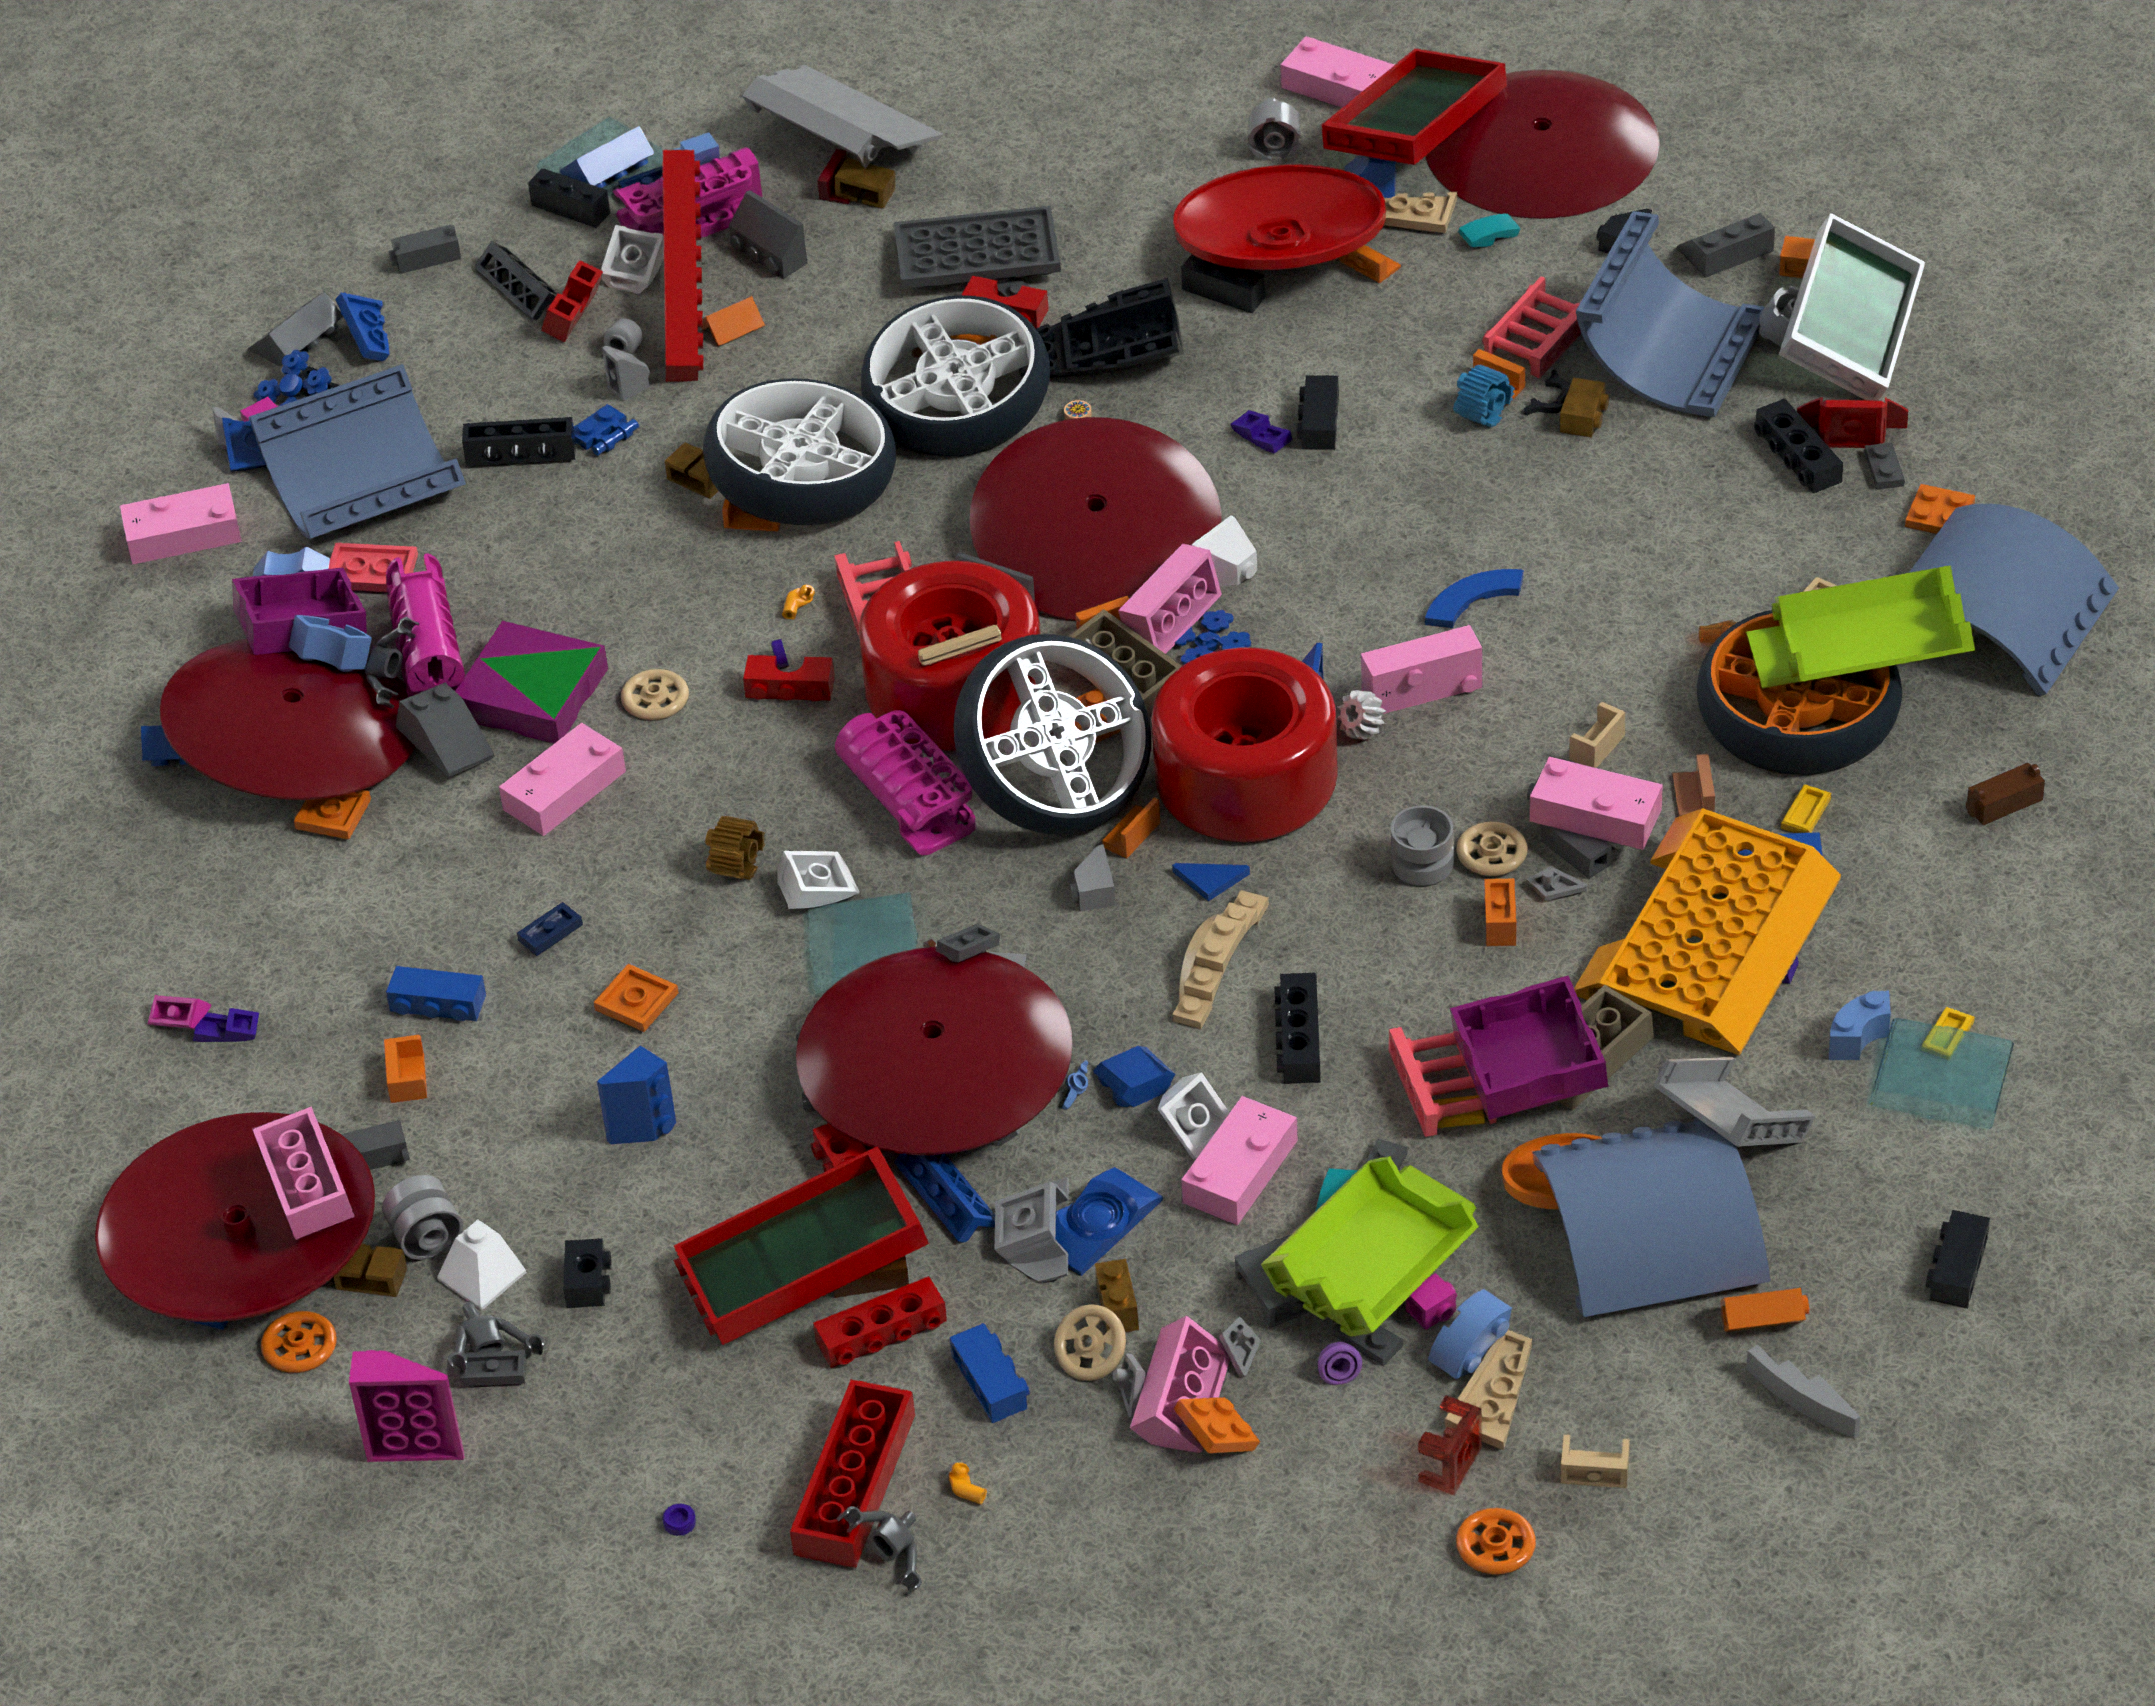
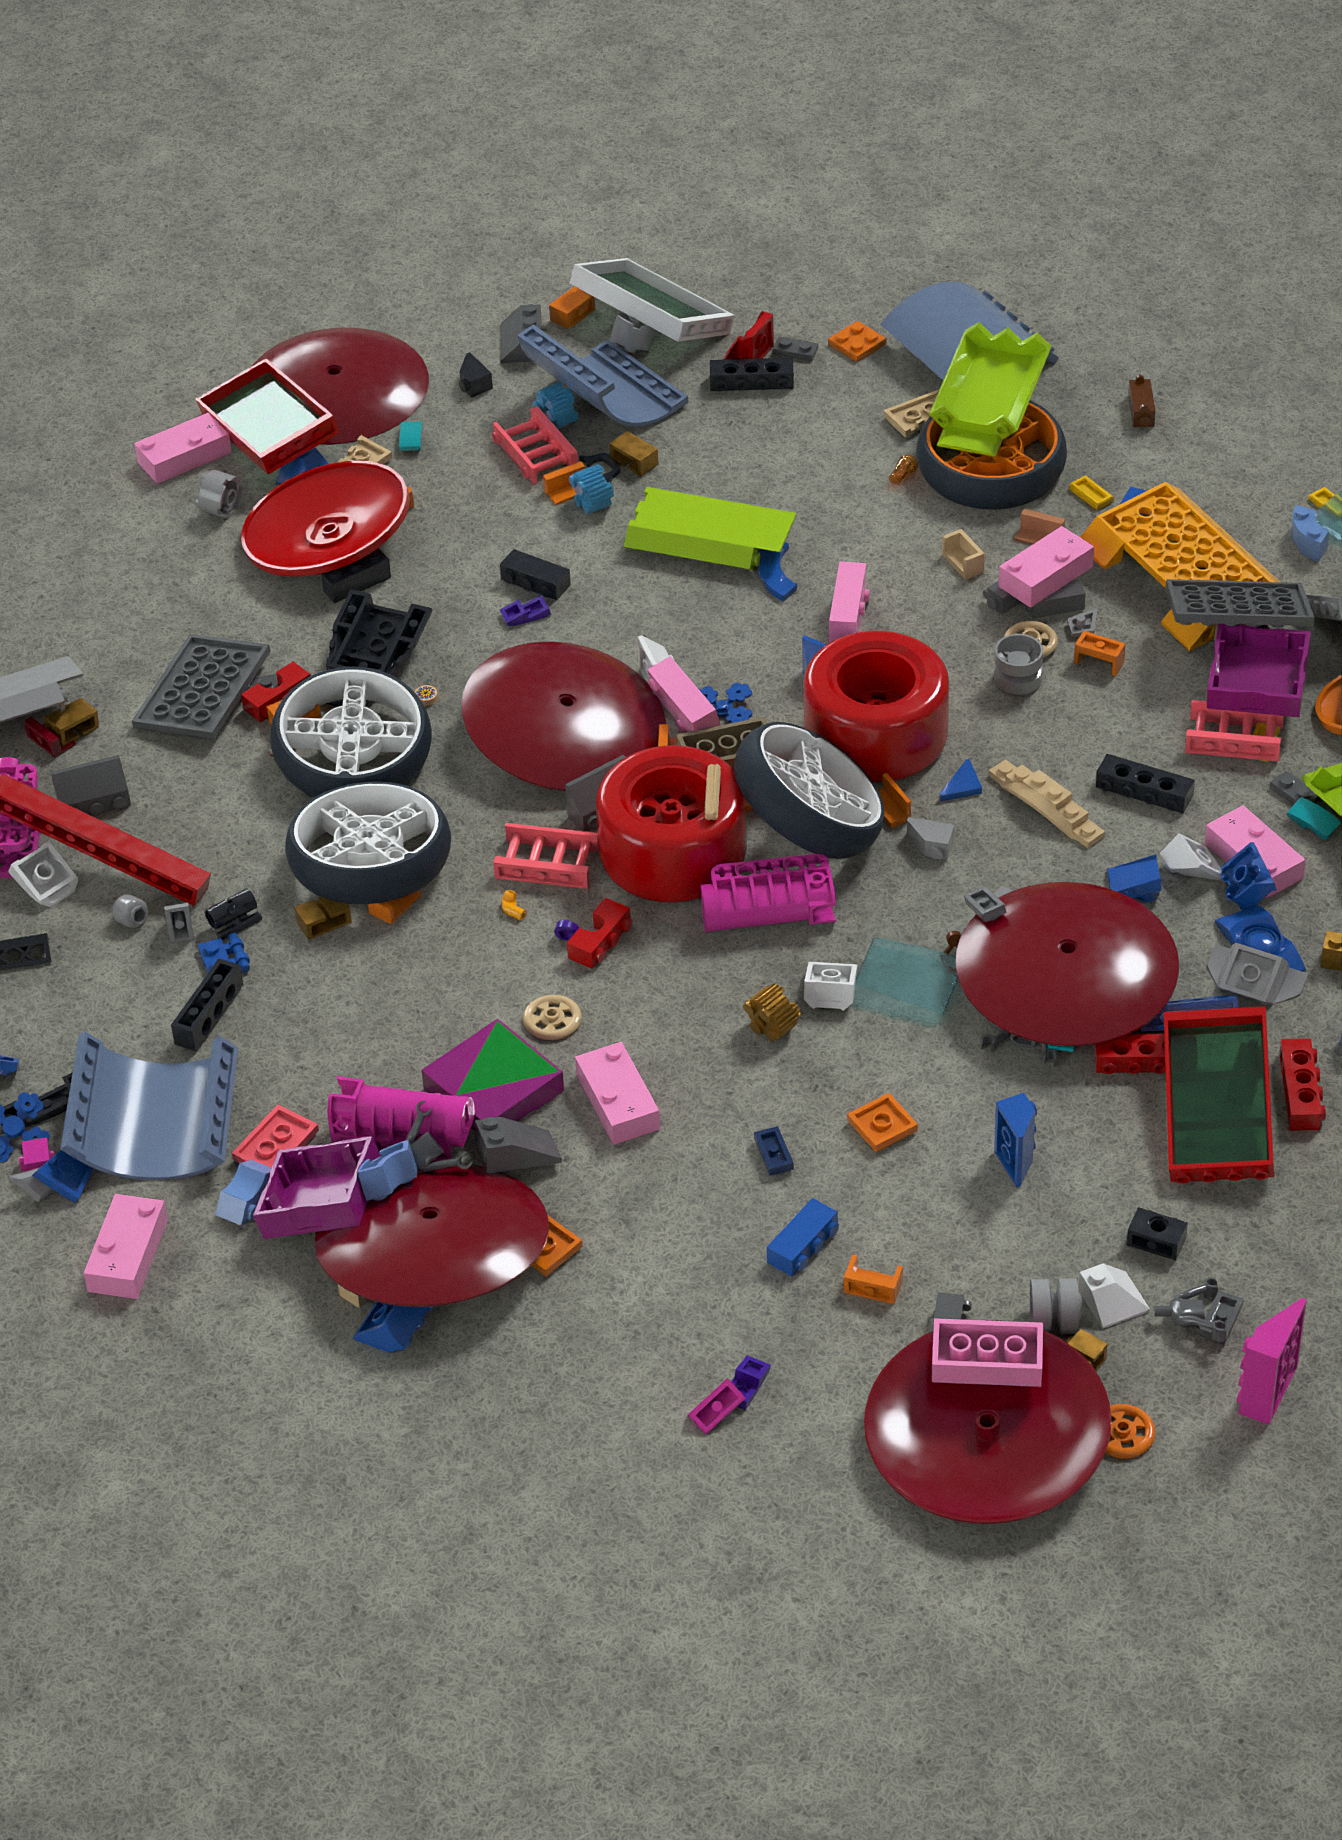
camera: 65 degrees left, 0 degrees up
(569, 307) = (75, 935): red arch -> none
(658, 407) = (233, 913): none -> black pin
(733, 321) = (162, 837): orange panel -> none
(1170, 1168) = (1247, 877): none -> blue slope
(1485, 507) = (706, 528): none -> lime panel
(1623, 983) = (1239, 603): none -> dark grey plate

